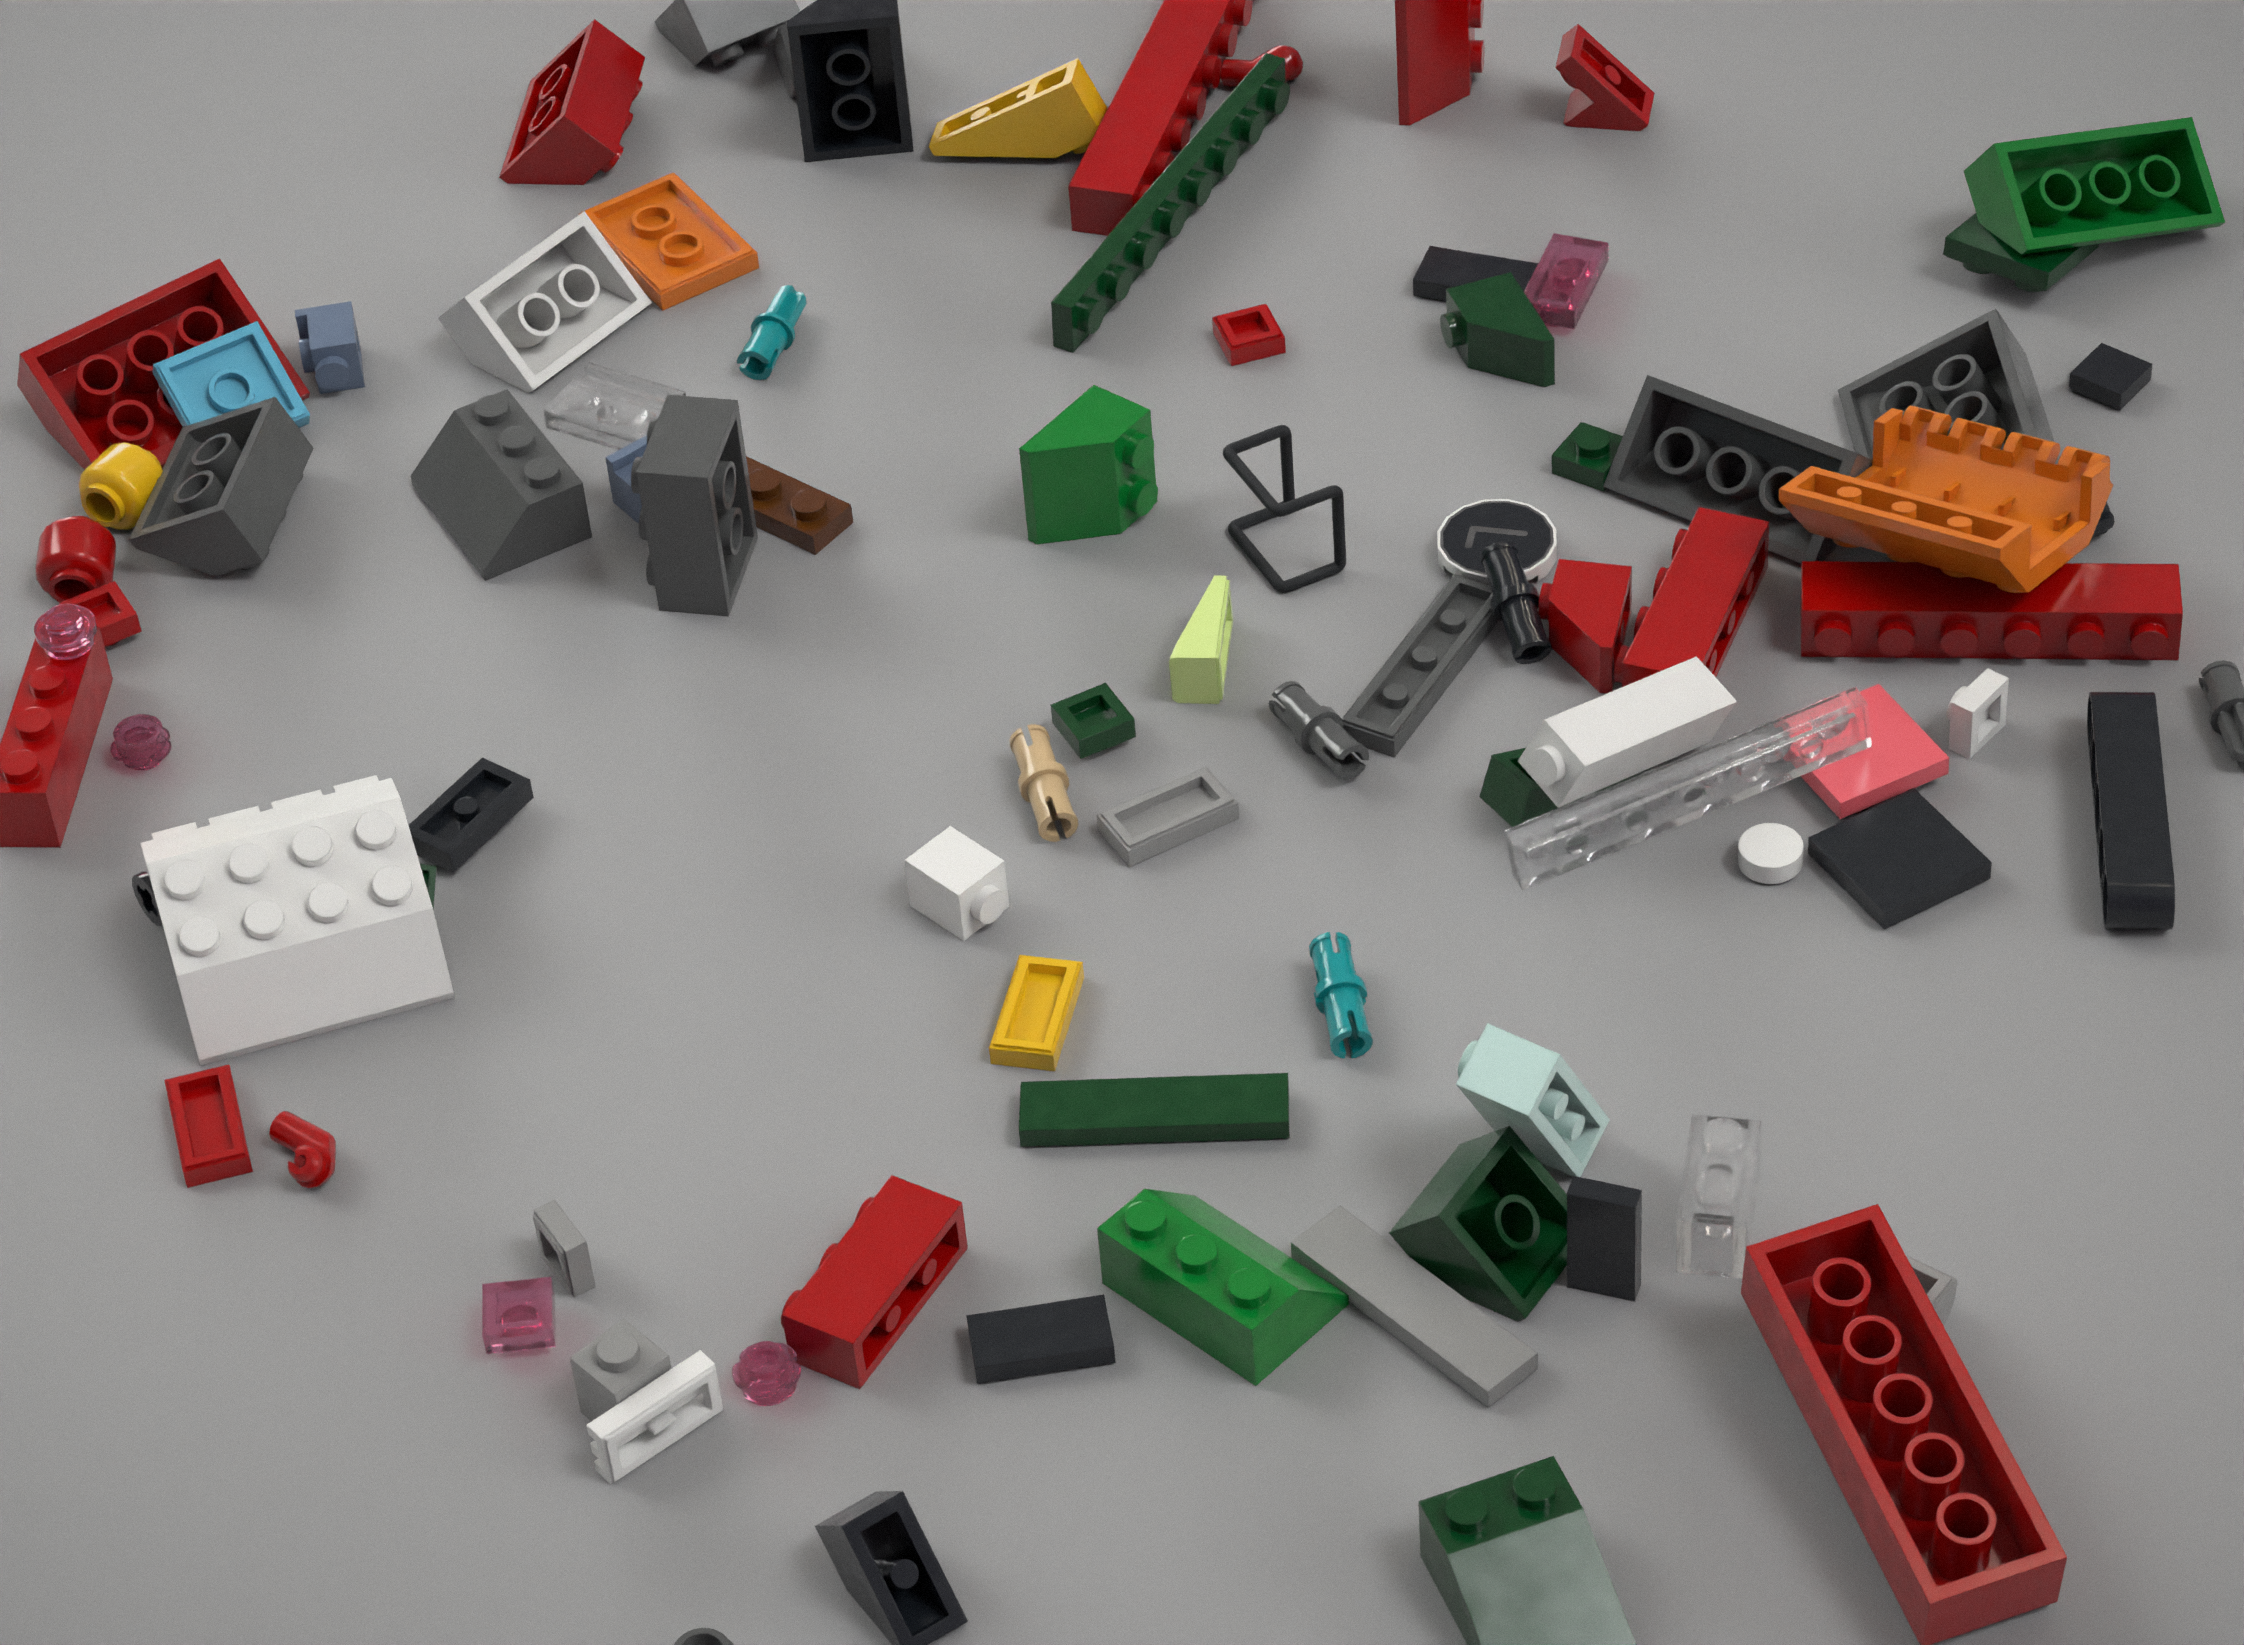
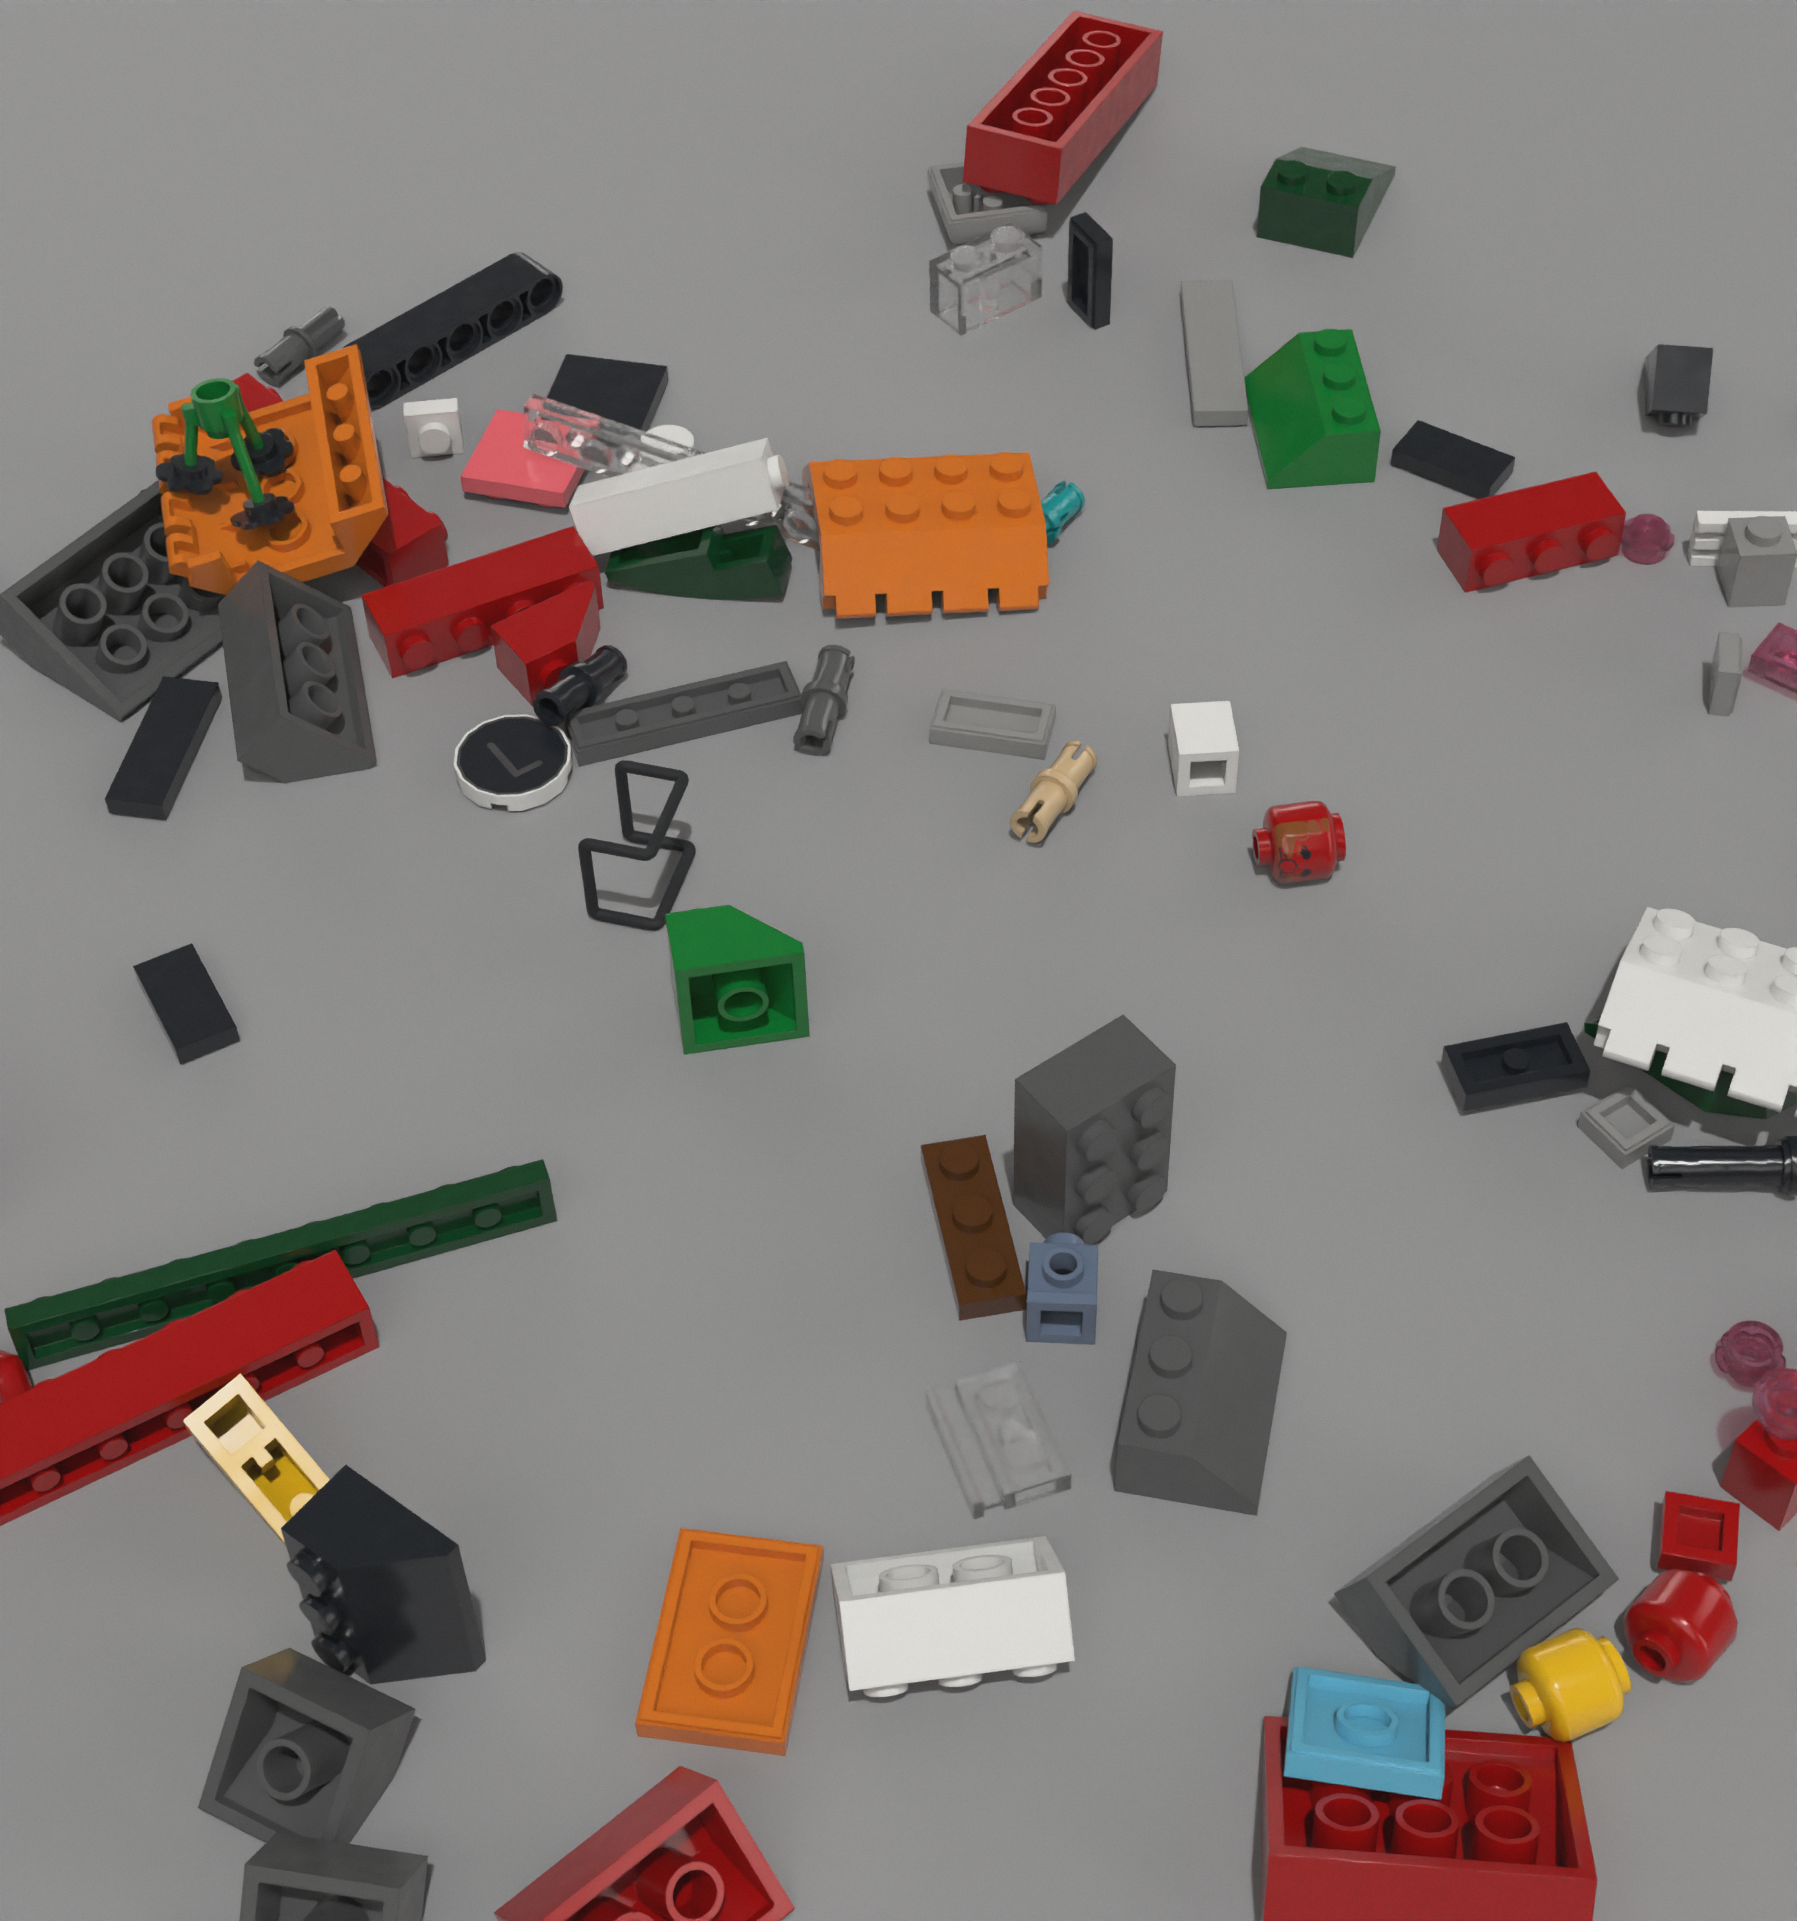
camera: 140 degrees left, 5 degrees up
(331, 346) = (1205, 1730): sand blue brick -> none
(771, 333) = (773, 1408): teal axle -> none
(795, 859) = (1300, 841): none -> red head
(1036, 1013) = (1237, 650): yellow tile -> none
(1093, 720) = (964, 813): dark green plate -> none
(1154, 1109) = (1236, 542): dark green tile -> none
(1202, 650) = (817, 808): yellowish green slope -> none
(1248, 334) = (410, 1091): red tile -> none
(1444, 909) = (928, 529): none -> orange slope
(1490, 1225) = (1129, 344): dark green slope -> none
(1499, 331) = (251, 921): dark green slope -> none
(1535, 1095) = (1051, 318): light aqua brick -> none
(1566, 279) = (140, 933): clear pink plate -> none
(1586, 455) = (349, 786): dark green plate -> none
(1766, 386) = (163, 748): none -> black tile
(1993, 438) = (220, 412): none -> plant

